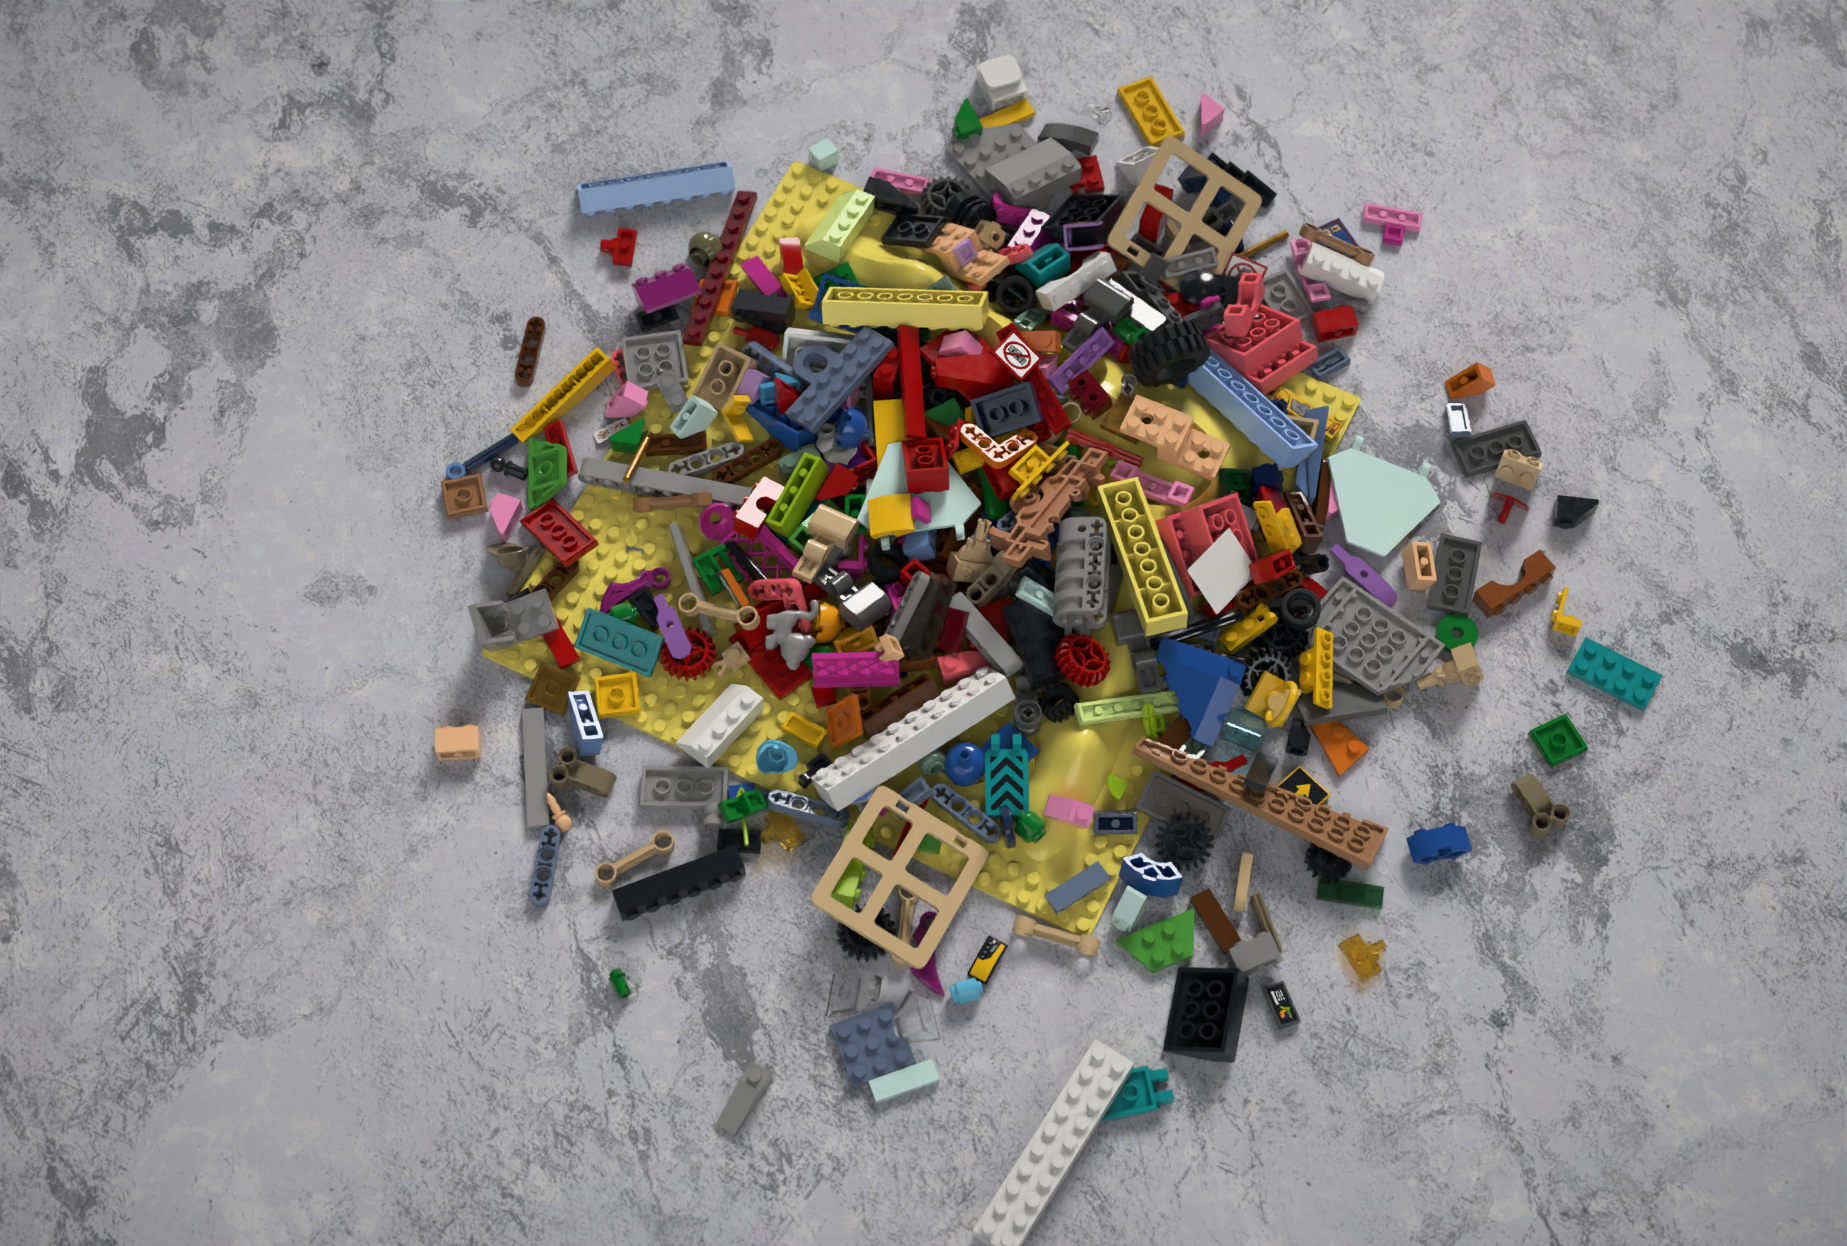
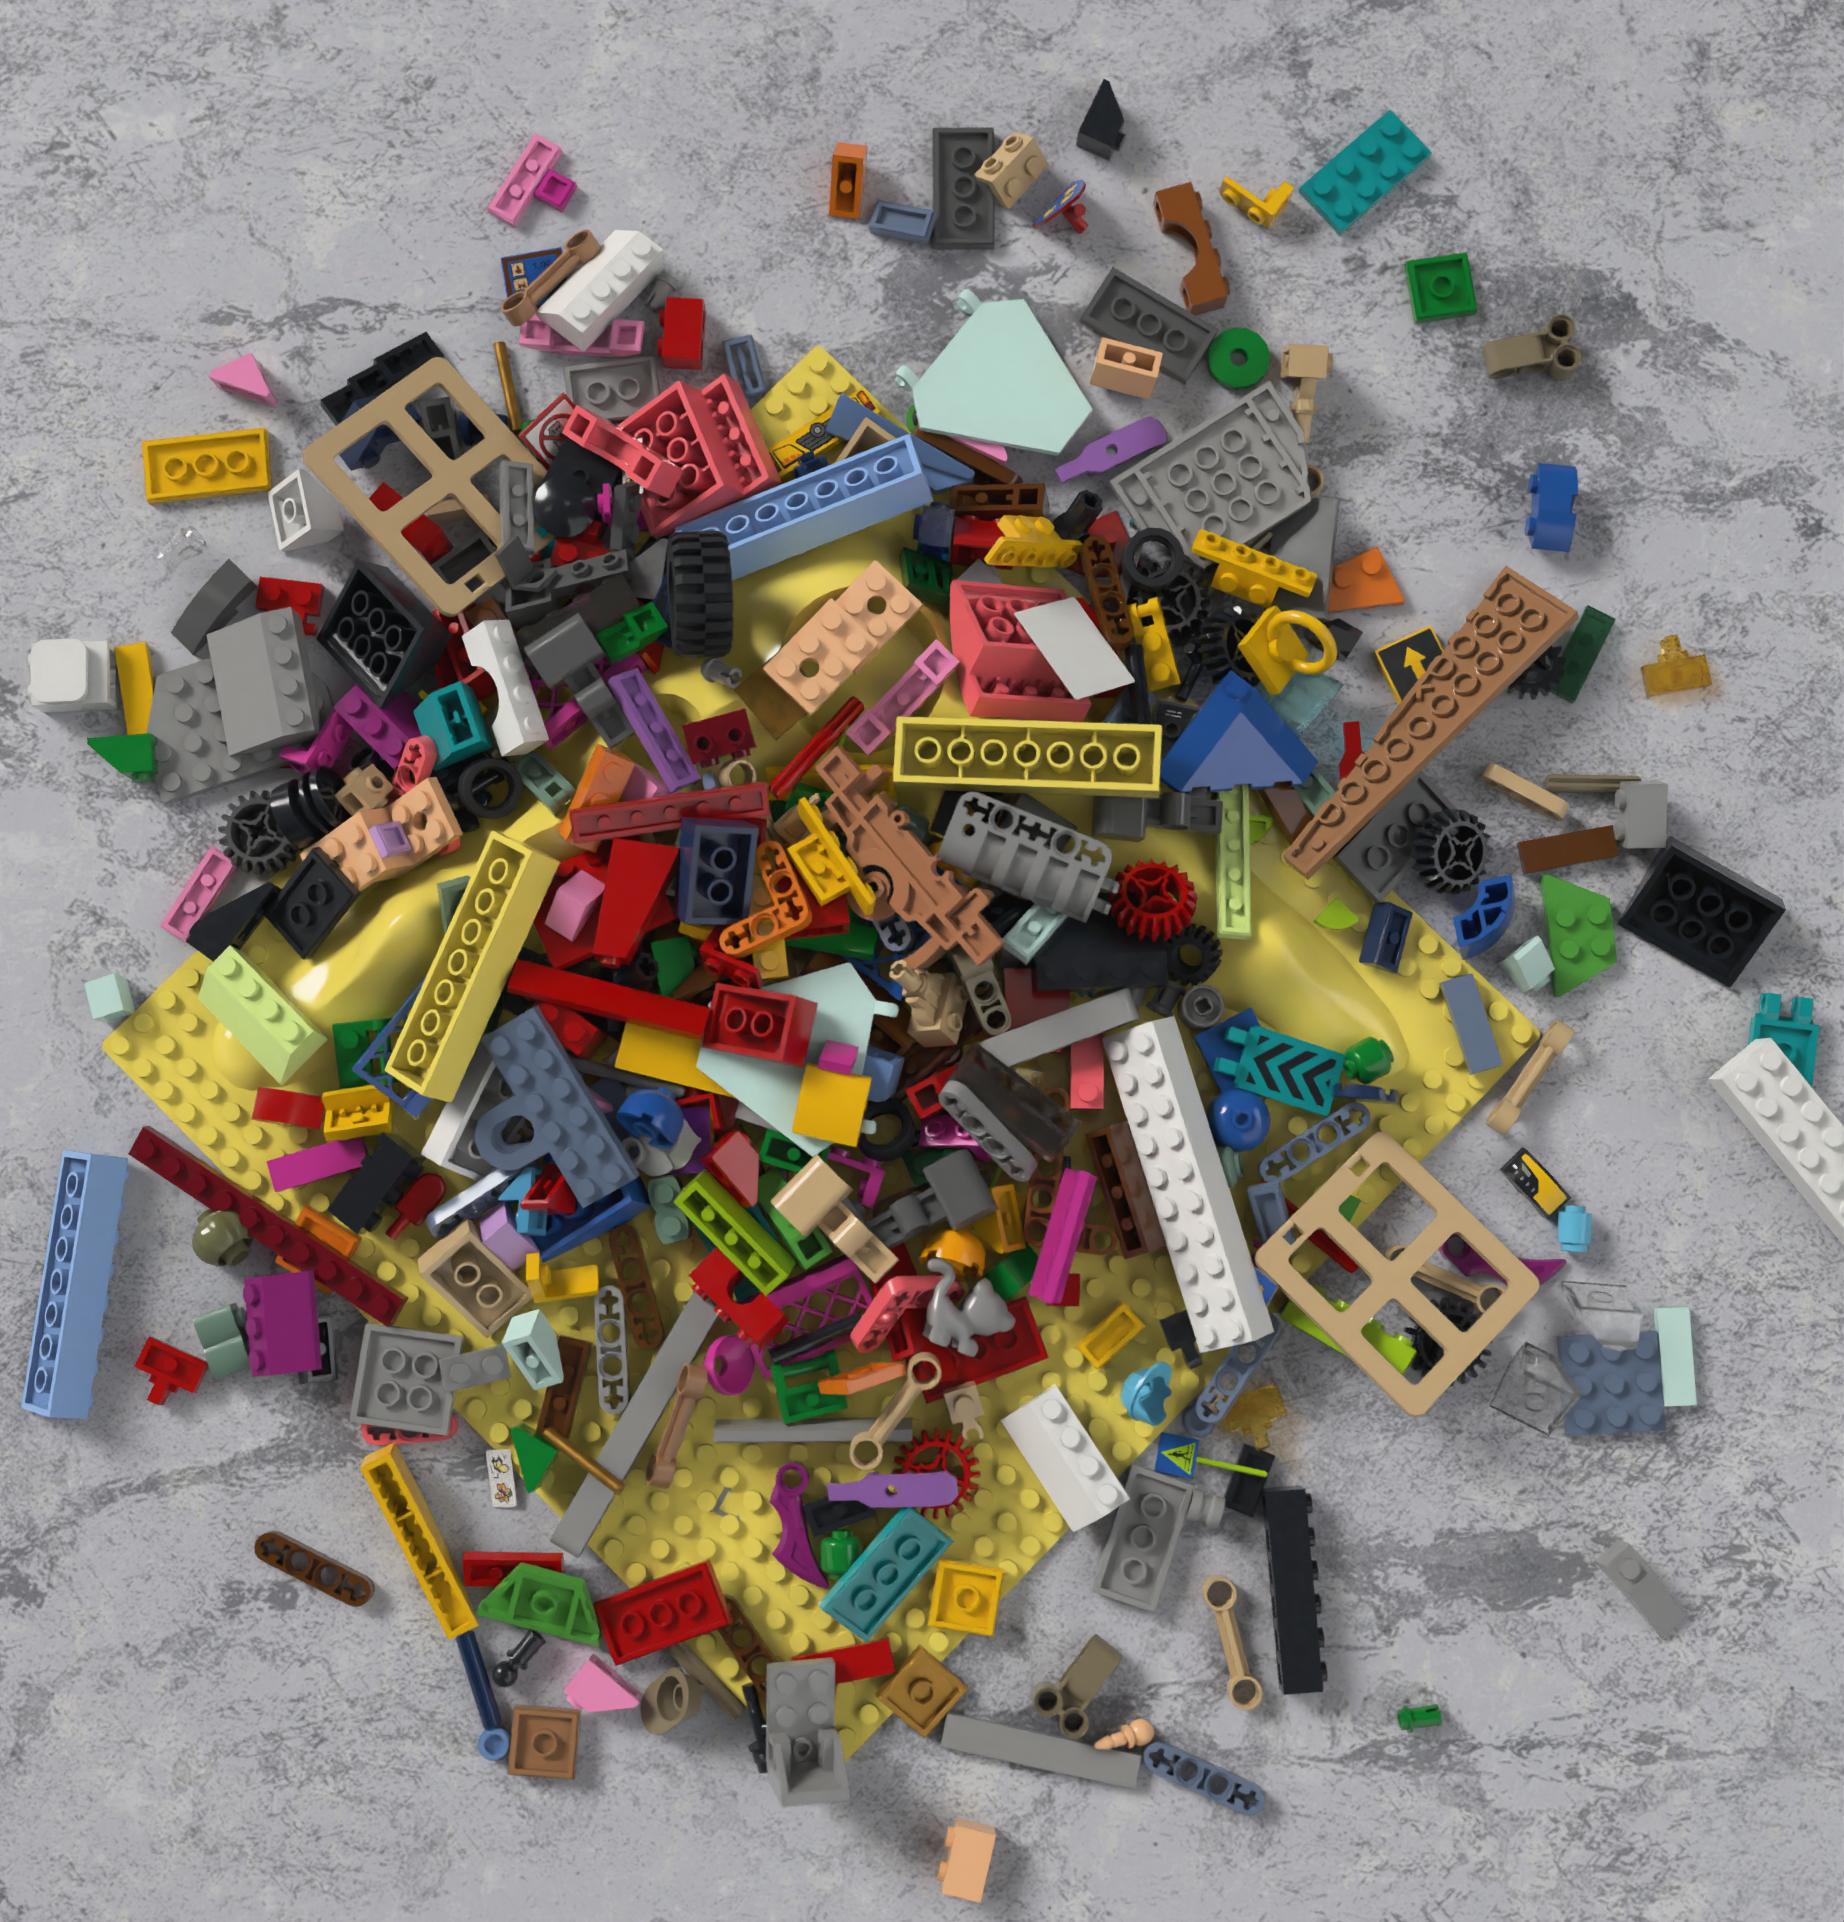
camera: 70 degrees left, 20 degrees up
(585, 724) = (996, 1659): medium blue slope -> none
(627, 401) = (465, 1443): bright pink slope -> none
(646, 265) = (224, 1339): none -> sand green brick
(742, 806) = (1204, 1462): green slope -> none
(844, 721) = (1126, 1275): orange tile -> none
(891, 647) = (1080, 1181): light nougat tile -> none
(954, 630) = (1043, 1070): dark red tile -> none
(1016, 356) = (636, 827): piece -> none
(1068, 236) = (448, 656): medium lavender piece -> none
(1069, 811) = (1365, 996): bright pink slope -> none
(1149, 721) = (1263, 837): lime axle -> none
(1193, 618) = (1126, 716): dark grey bar -> none
(1260, 772) = (1390, 708): black slope -> none
(1272, 566) = (1082, 574): red brick -> none
(1281, 1005) = (1713, 806): tile -> none

